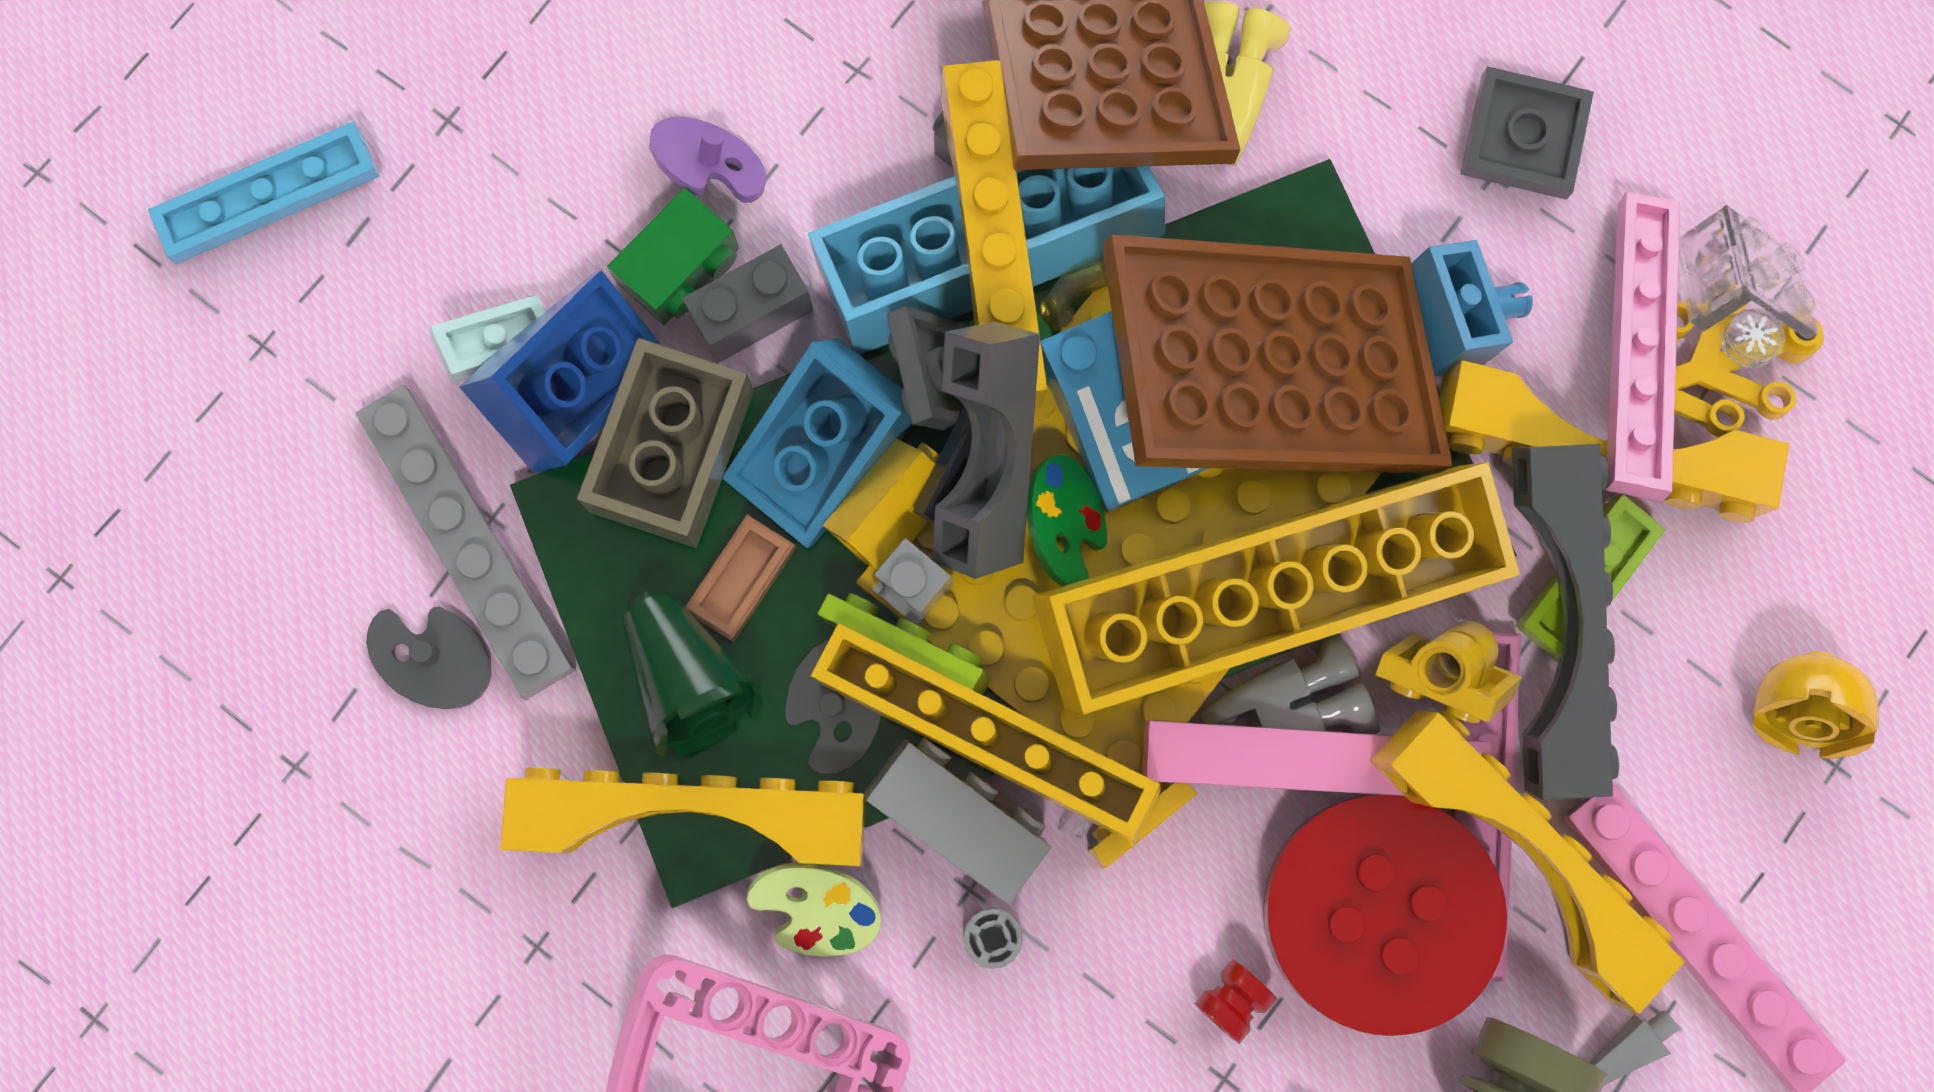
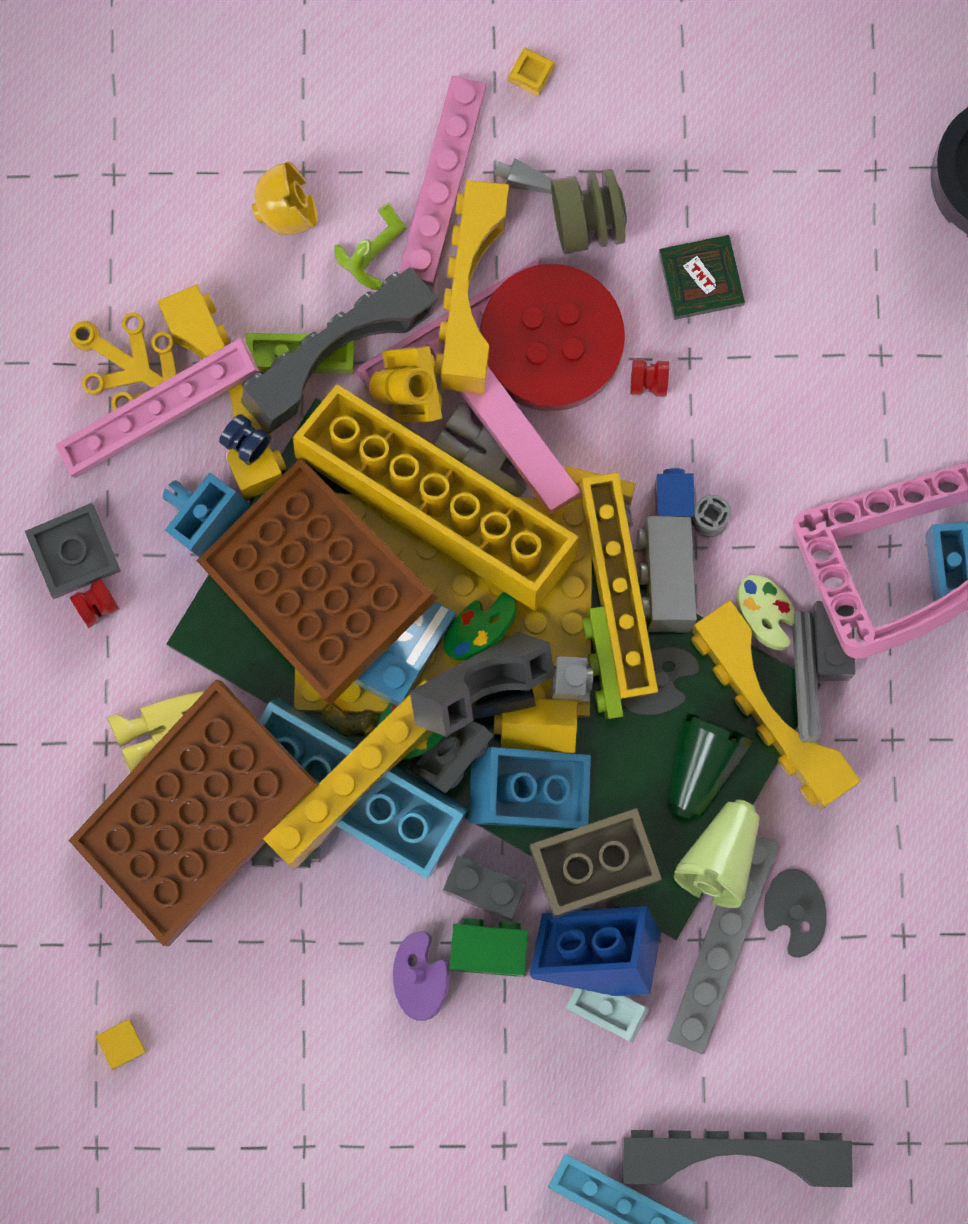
camera: 125 degrees left, 0 degrees up
(126, 445) = (816, 1162): none -> dark grey arch
(554, 609) = (722, 856): none -> yellowish green cone
(688, 889) = (806, 677): none -> light grey axle
(698, 940) = (830, 657): none -> dark grey brick
(740, 578) = (632, 777): nougat tile -> none
(1054, 910) = (674, 493): none -> blue brick
(1442, 110) = (94, 603): none -> red wheel
(1527, 404) = (244, 439): none -> dark blue wheel
(1669, 744) = (368, 249): none -> lime piece
(1737, 262) = (74, 384): clear bracket -> none
(1753, 338) = (107, 357): clear tile -> none

